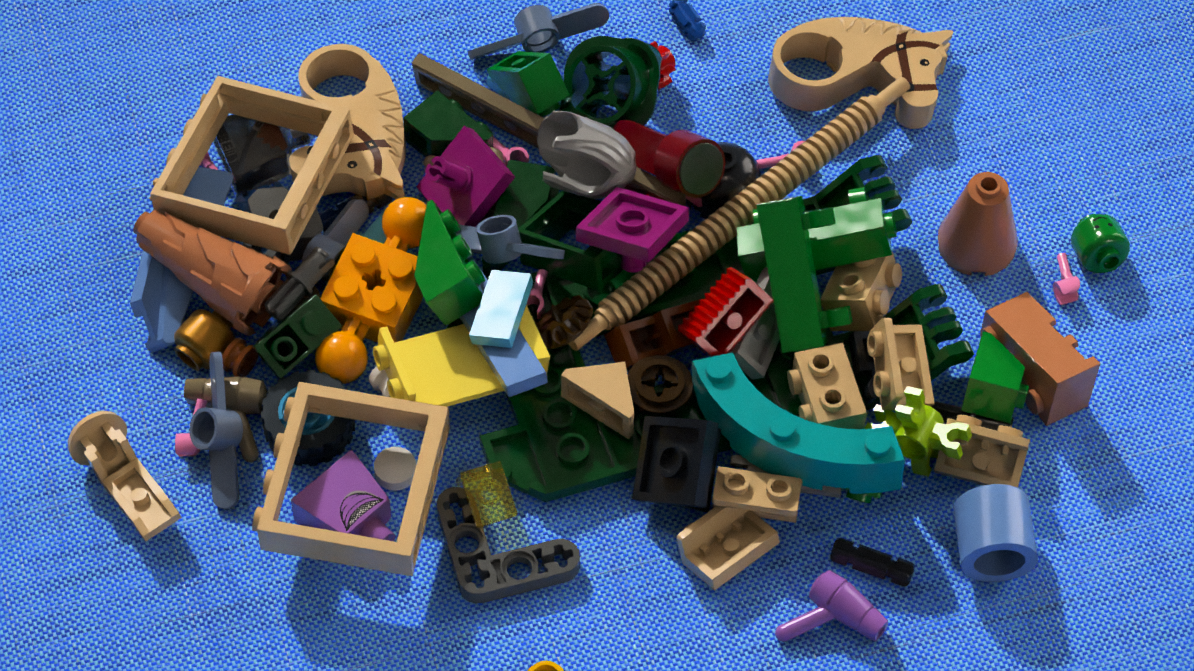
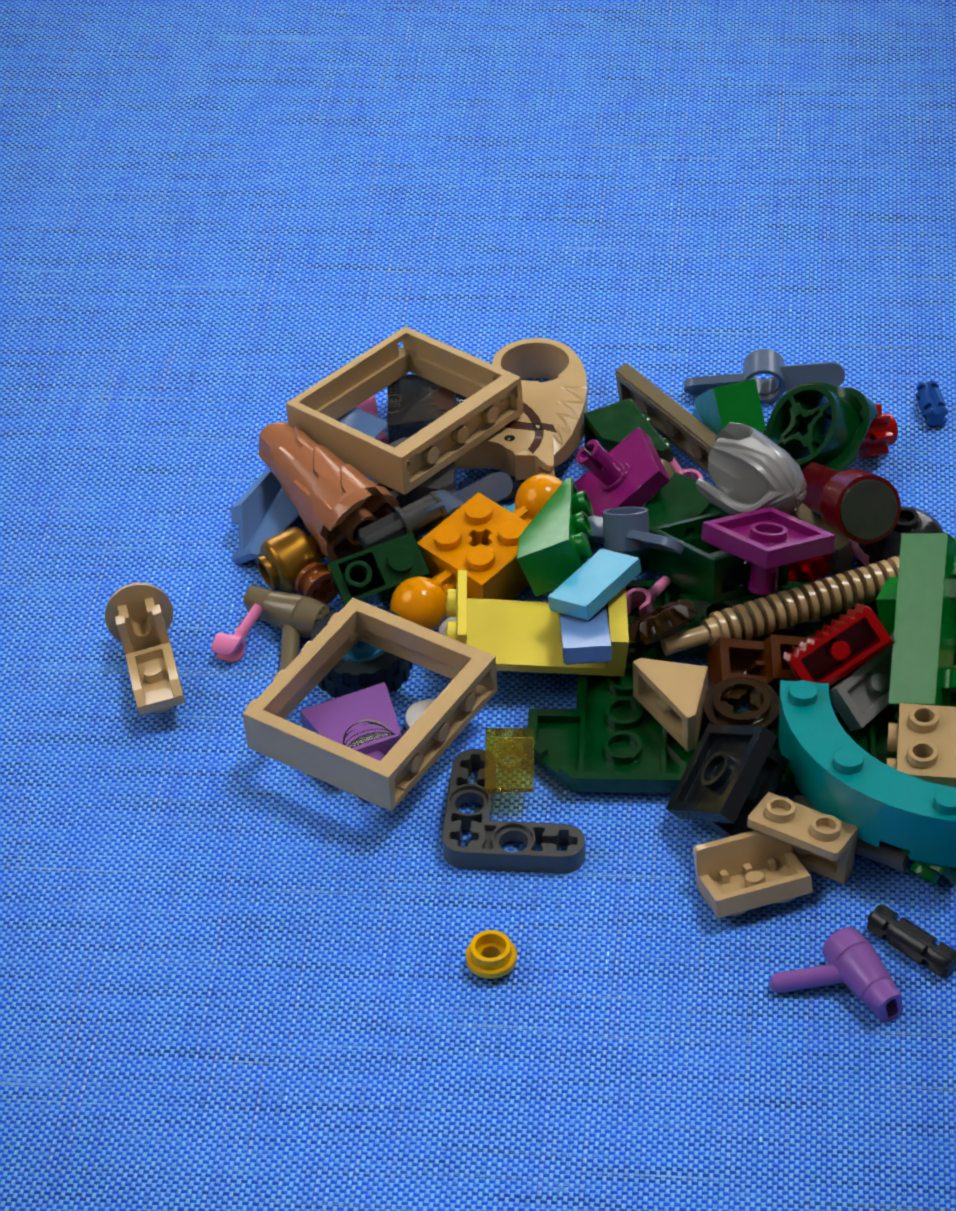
camera: 25 degrees right, 15 degrees down
(220, 433) = (260, 638): sand blue piece -> none

